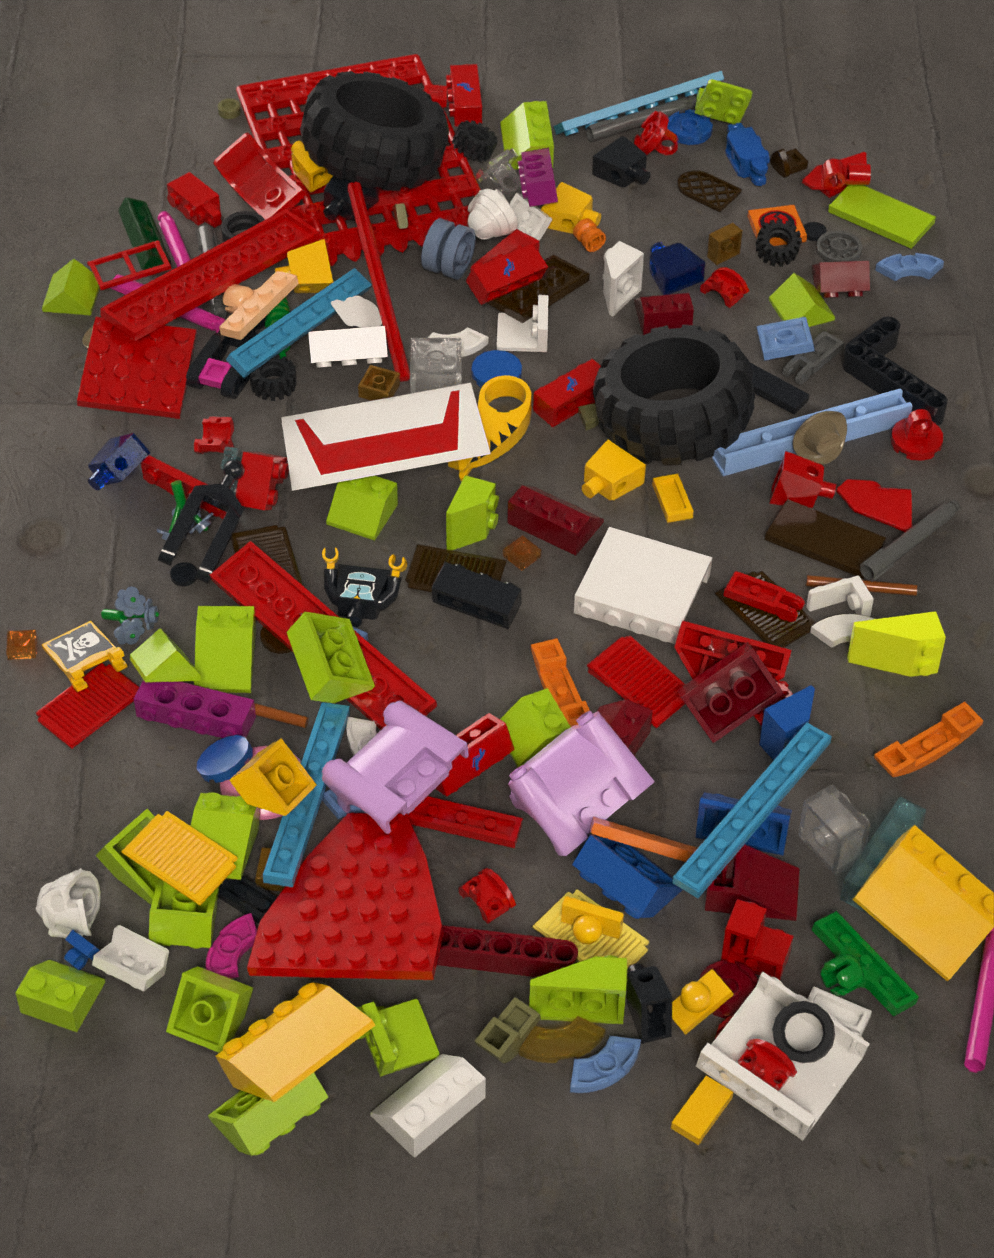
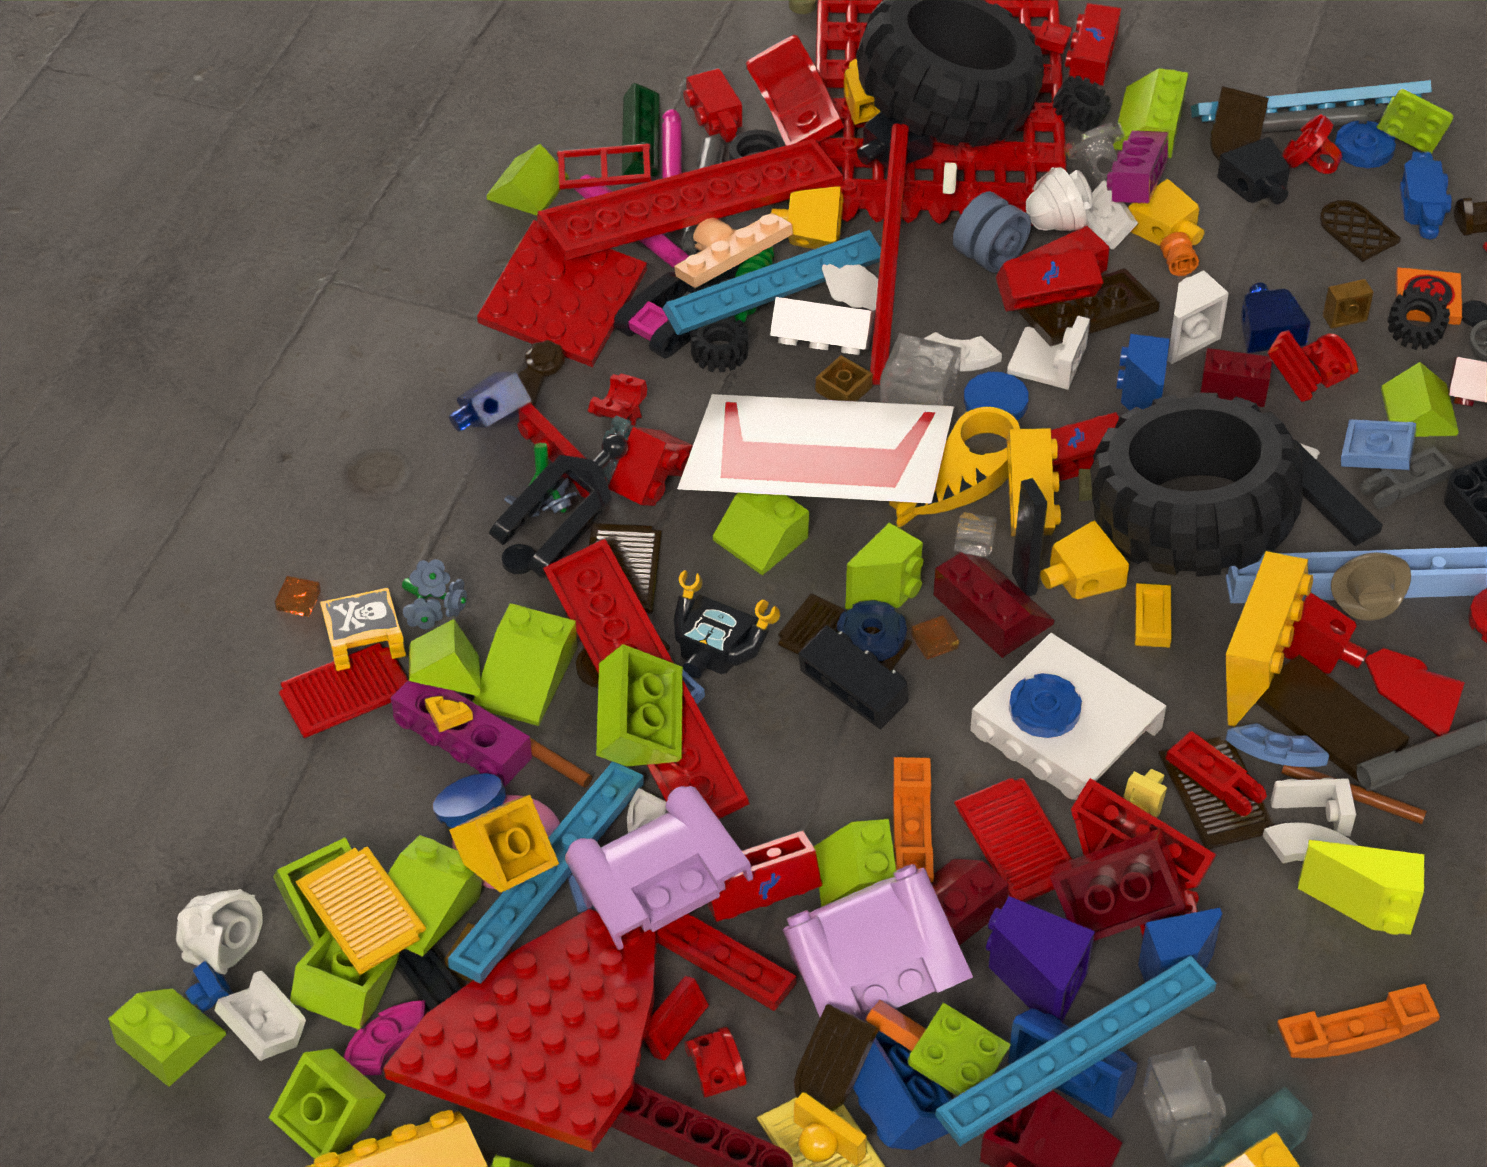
camera: 20 degrees right, 0 degrees up
(142, 422) = (541, 361): none -> dark brown piece
(184, 699) = (447, 713): none -> yellow tile
(446, 871) = (675, 1017): none -> red tile
(477, 547) = (879, 615): none -> dark blue tile
(525, 470) = (975, 534): none -> clear brick
(552, 422) = (1029, 457): none -> yellow brick
(571, 460) = (1029, 536): none -> black tile
(576, 865) = (834, 1057): none -> dark brown window
(594, 129) = (1237, 120): none -> dark brown window
(602, 326) = (1144, 370): none -> blue slope
(627, 579) = (1045, 705): none -> blue tile
(664, 836) = (957, 1051): none -> lime bracket
(691, 754) = (1039, 956): none -> dark purple slope
(705, 296) = (1294, 366): none -> red tile
(720, 619) = (1146, 791): none -> light yellow tile
(768, 486) = (1264, 630): none -> yellow slope
(797, 568) = (1277, 747): none -> medium blue tile

